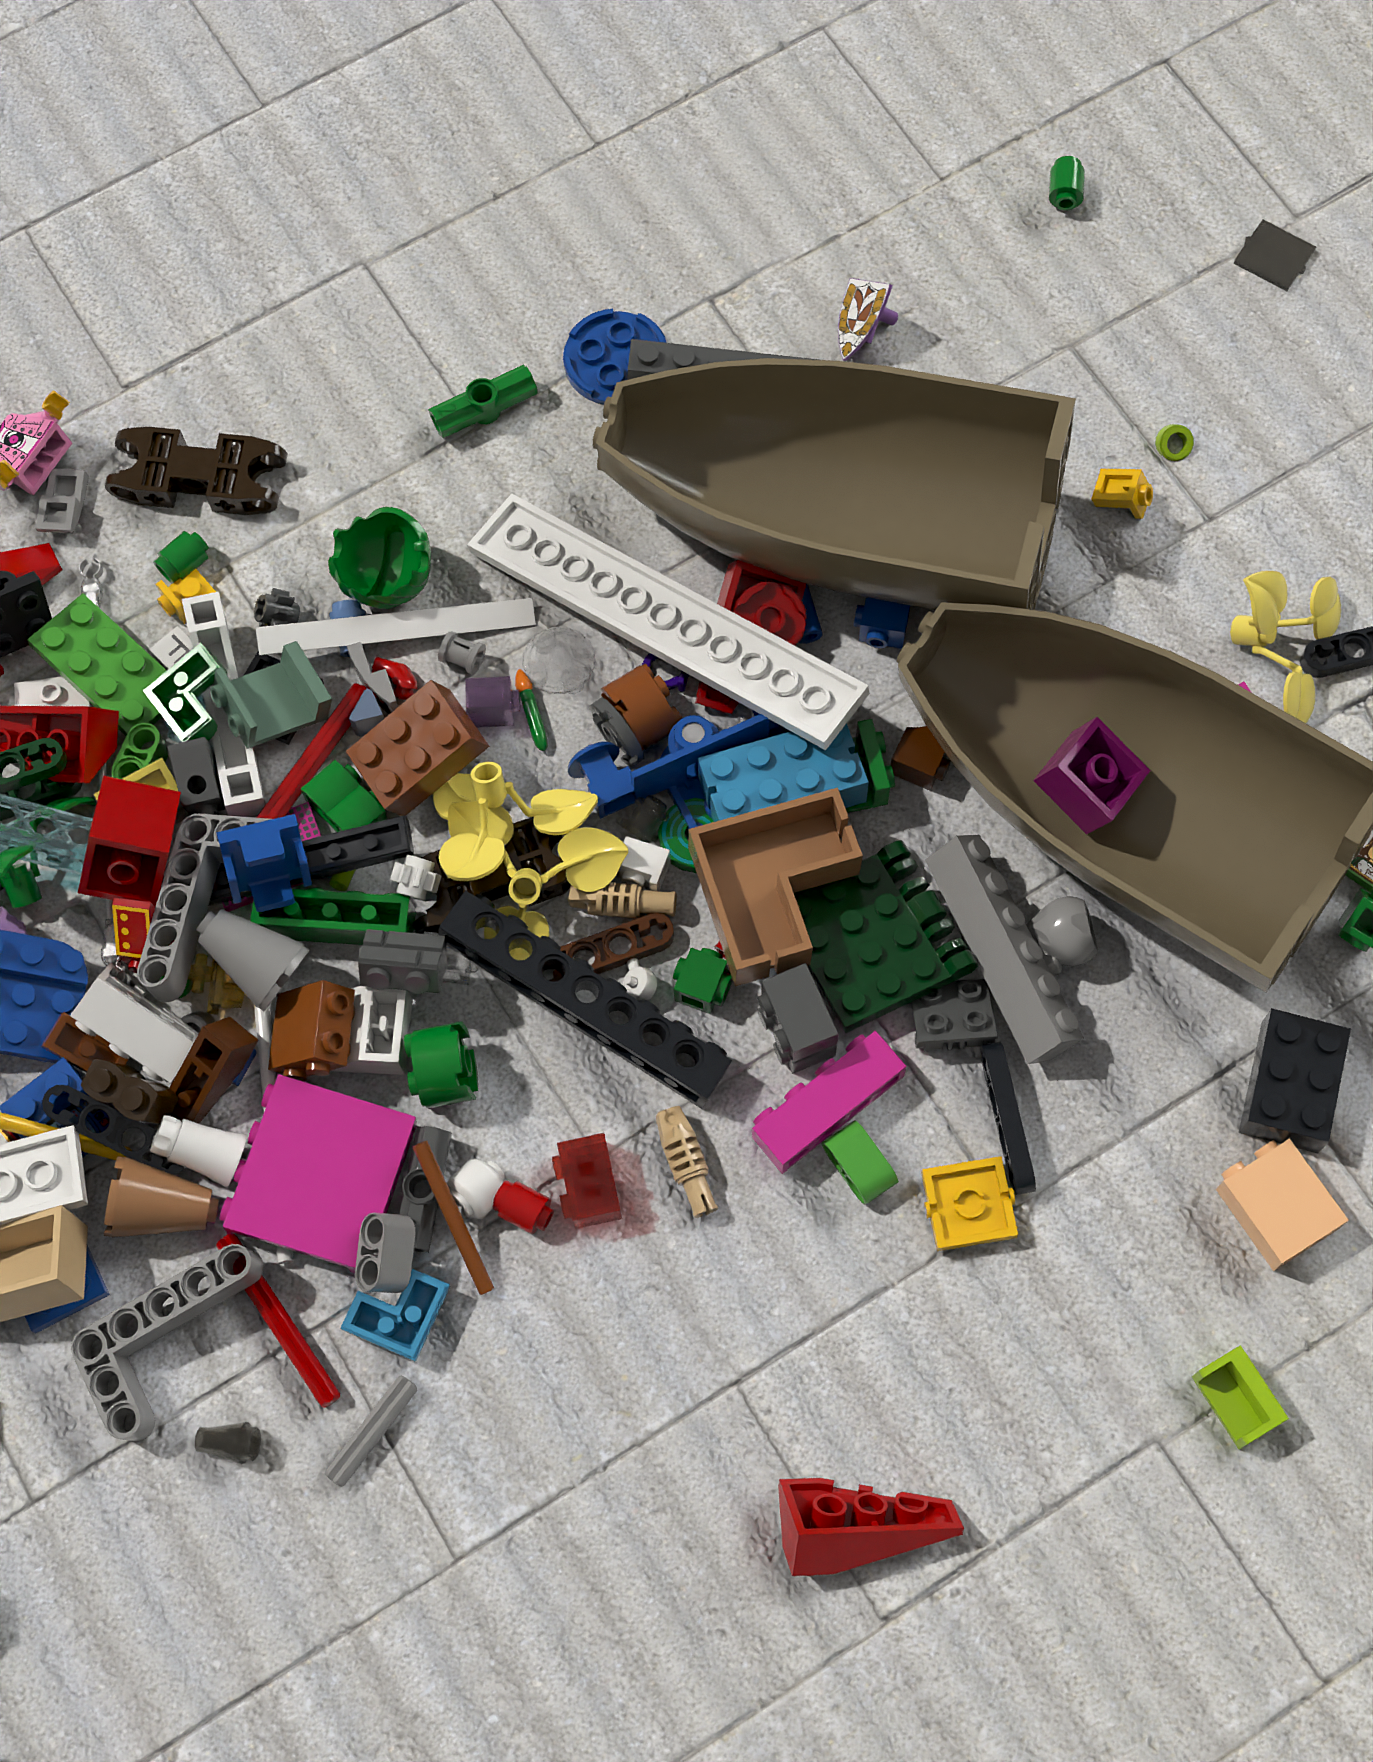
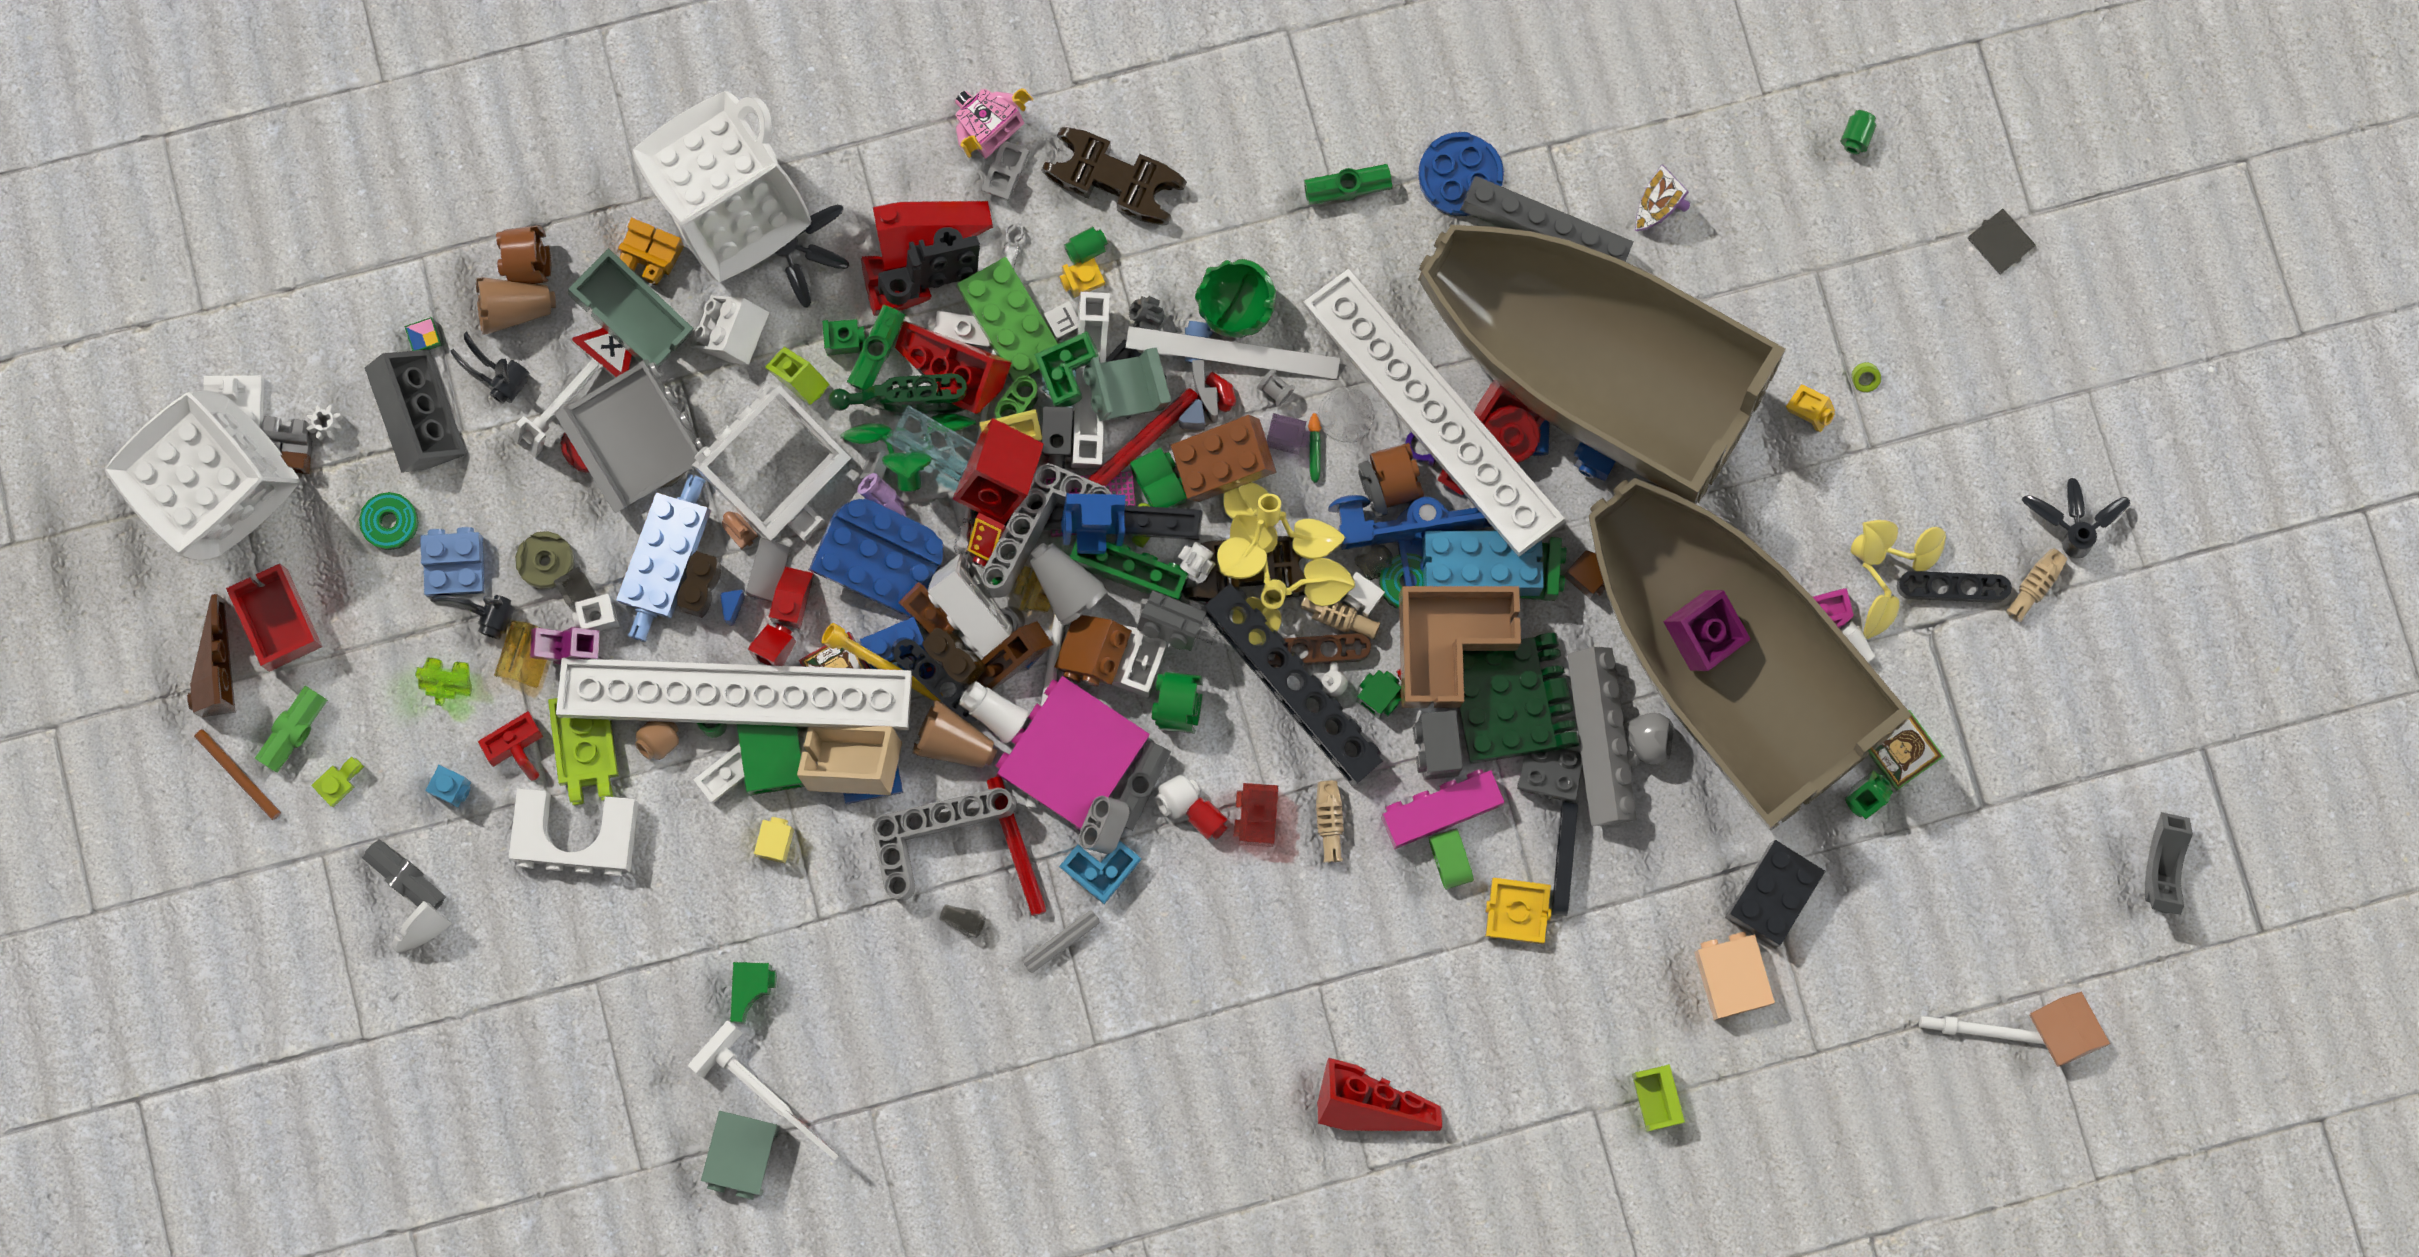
camera: 10 degrees right, 10 degrees up
(453, 1217) = (1157, 813): dark orange bar -> none

